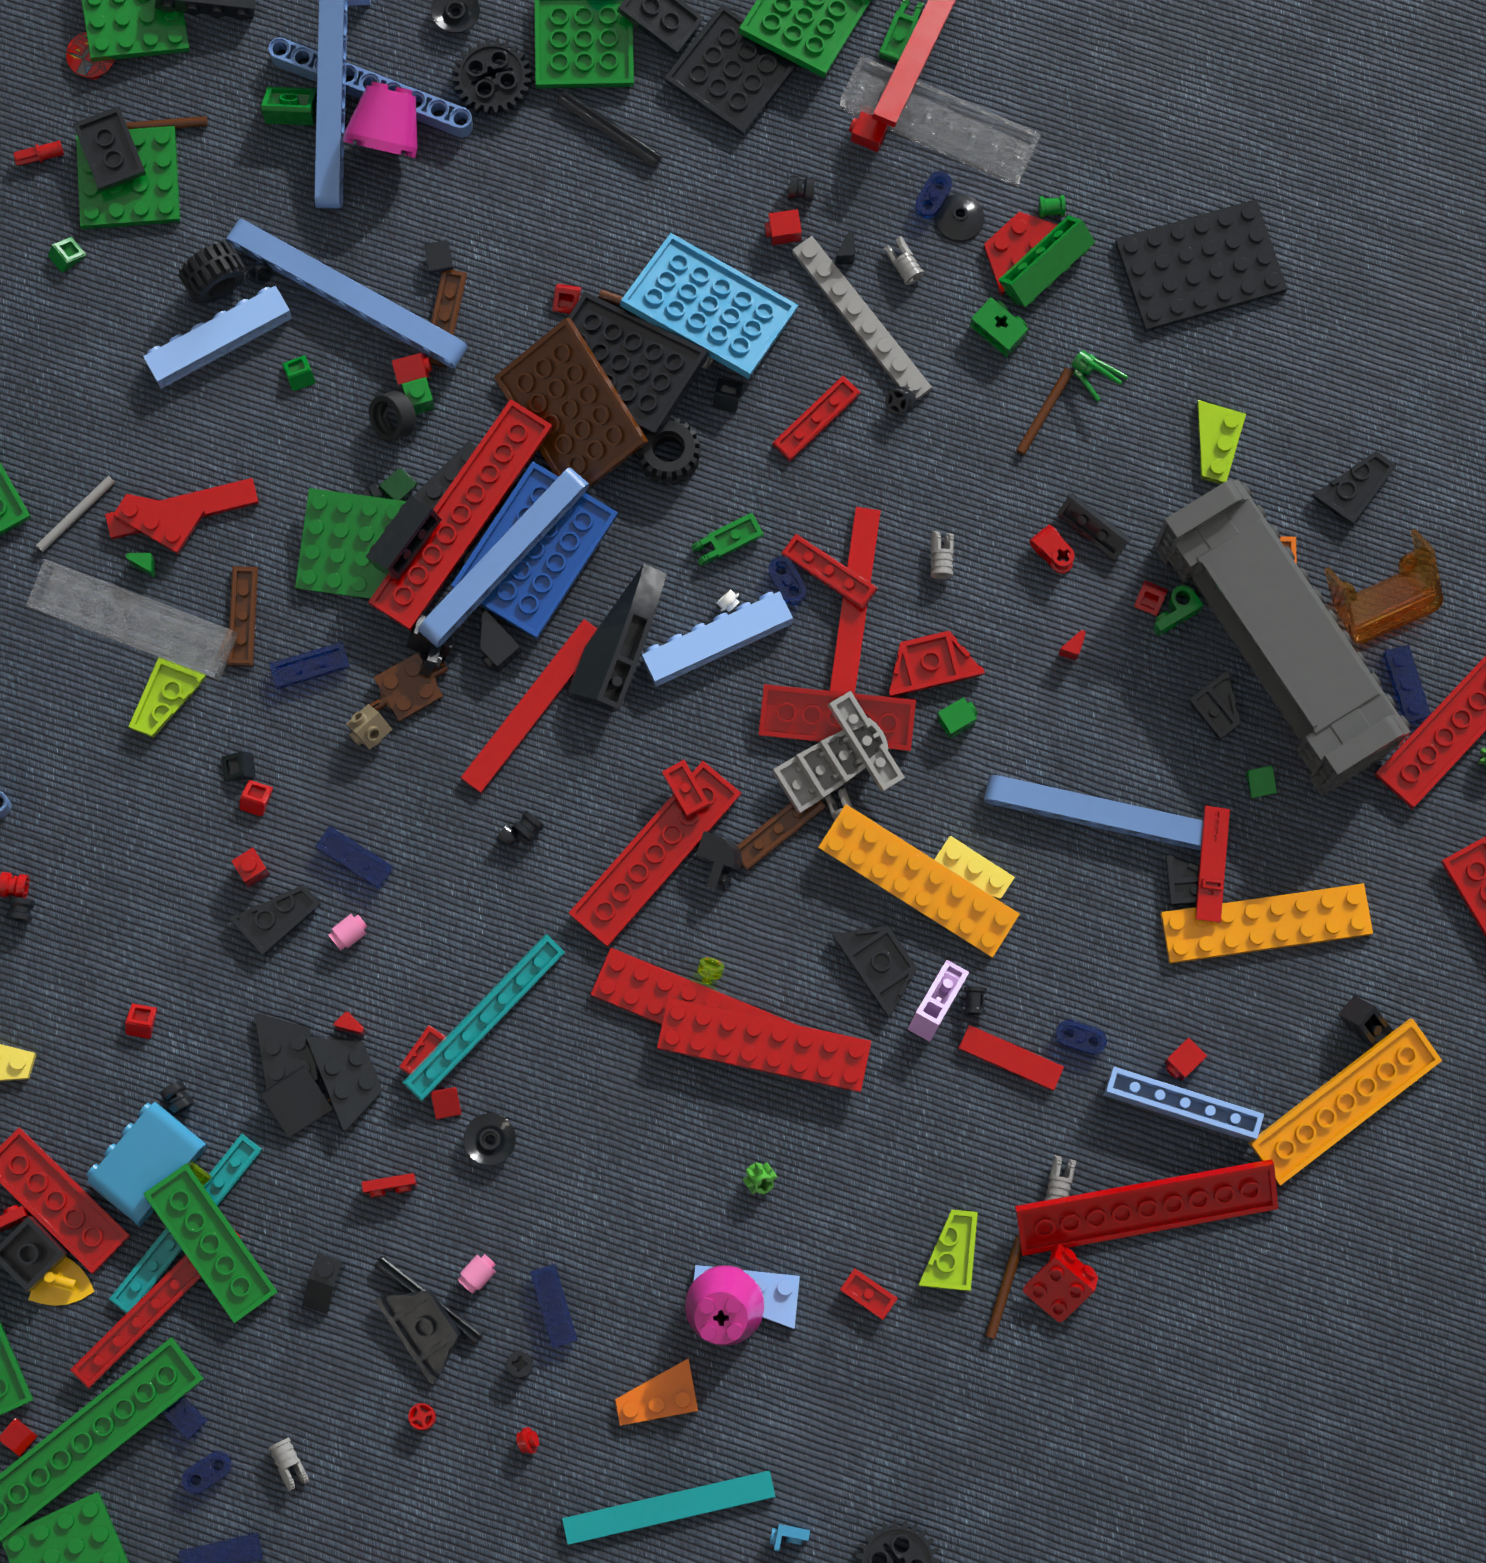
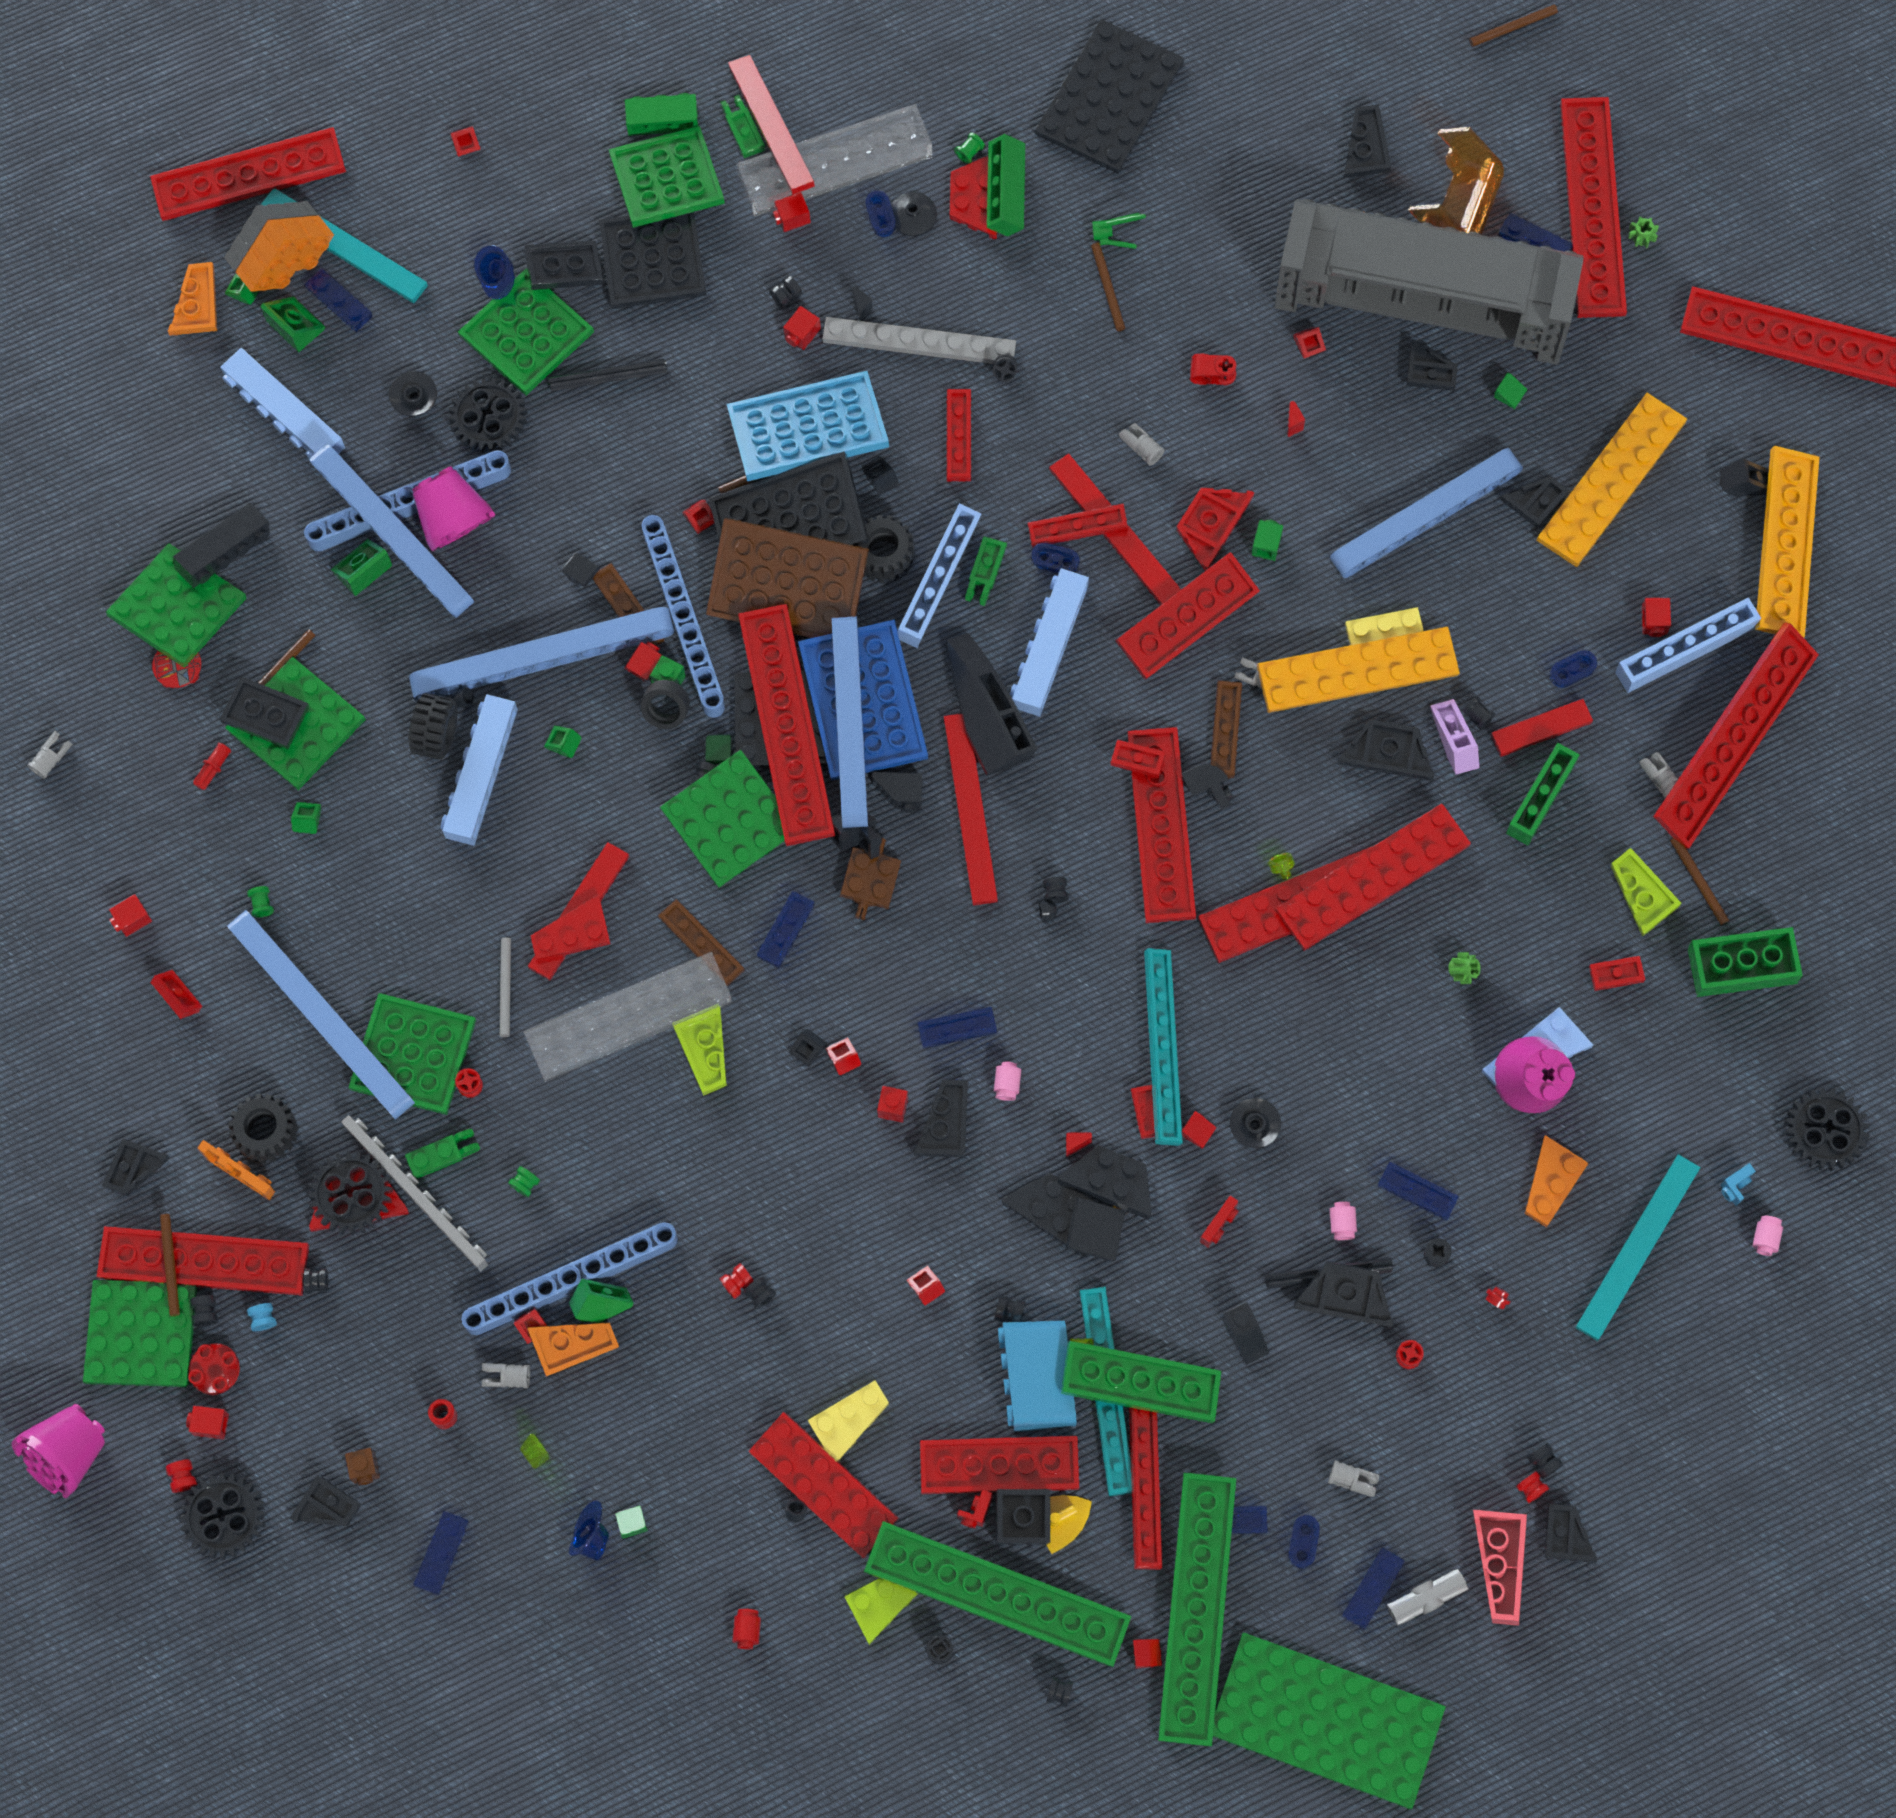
camera: 40 degrees left, 5 degrees down
(143, 562) = (591, 973): green slope -> none
(368, 727) = (873, 929): dark tan brick -> none
(403, 538) = (766, 774): black brick -> none
(475, 373) = (683, 626): none -> medium blue beam
(686, 510) = (938, 575): none -> light blue brick
(728, 601) = (1030, 610): white plate -> none
(839, 758) = (1221, 638): light grey slope -> none
(905, 263) = (911, 276): light grey hinge -> none
(954, 1107) = (1542, 794): none -> green brick
(969, 1381) = (1744, 962): none -> green brick
(1003, 338) = (1029, 265): green brick -> none
(1061, 1284) = (1735, 840): red bracket -> none
(1093, 526) = (1223, 329): black plate -> none
(1180, 613) = (1338, 332): green plate -> none
(1212, 864) = (1539, 472): red piece -> none
(1219, 436) = (1243, 196): lime wing -> none

